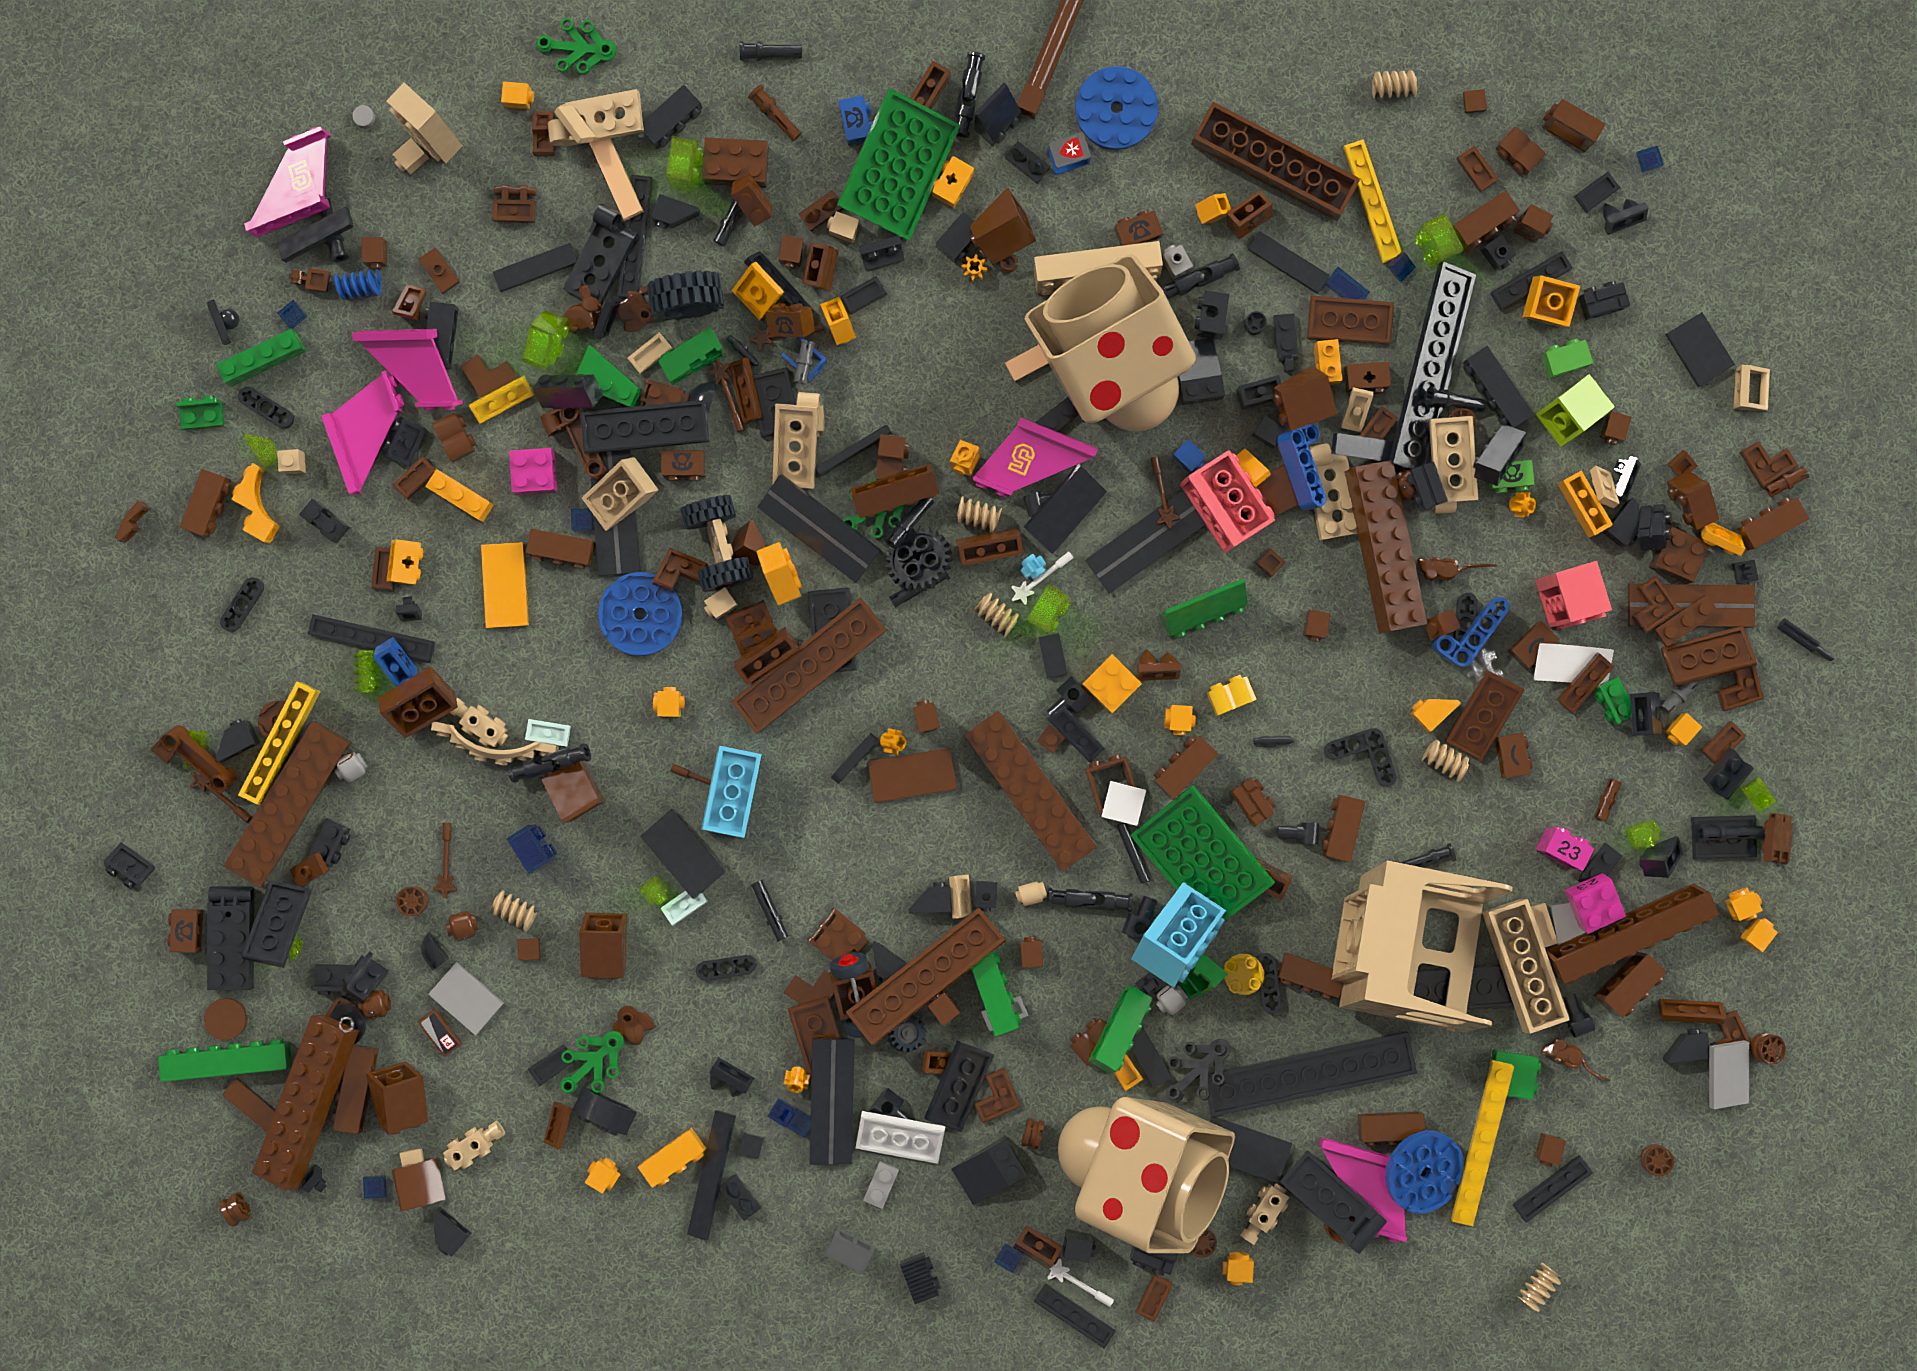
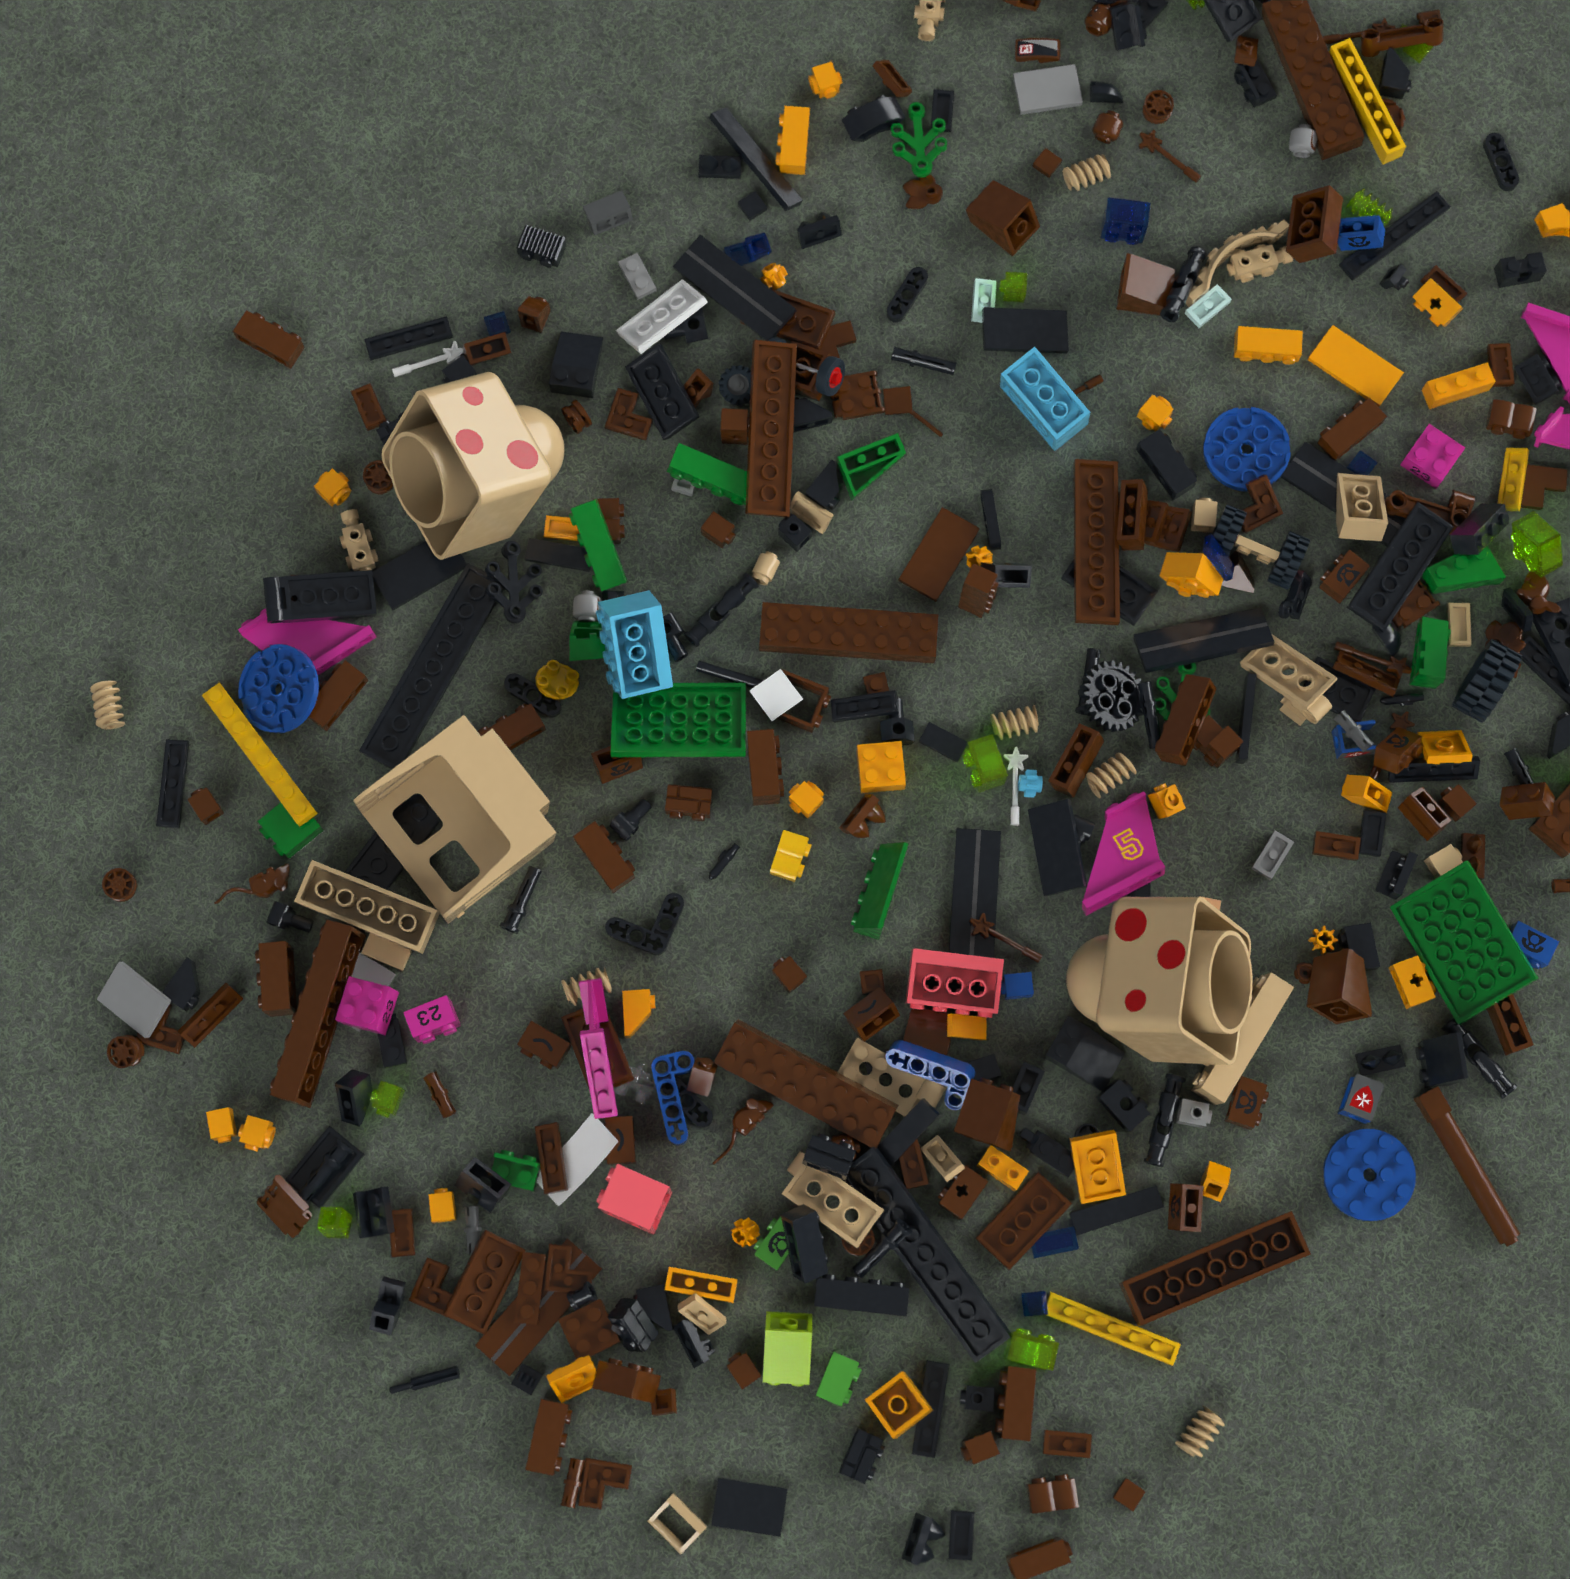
camera: 130 degrees right, 10 degrees down
(543, 662) = (1268, 344): none -> light orange brick
(702, 662) = (1167, 464): none -> black brick
(730, 485) = (1296, 598): none -> black hinge
(753, 562) = (1218, 557): none -> clear blue tile
(816, 903) = (899, 401): none -> reddish brown piece
(884, 706) = (1012, 574): none -> black brick
(887, 883) = (869, 463): none -> green wedge
(895, 312) = (1336, 846): none -> reddish brown plate
(940, 352) = (1272, 855): none -> light grey plate
(977, 1236) = (534, 313): none -> reddish brown slope
(1272, 297) = (1097, 1166): none -> light orange plate
(1297, 542) = (871, 1014): none -> reddish brown brick
(1498, 711) = (595, 1049): none -> dark pink piece
(1664, 578) = (582, 1295): none -> black bush
(1783, 707) = (388, 1306): none -> black brick

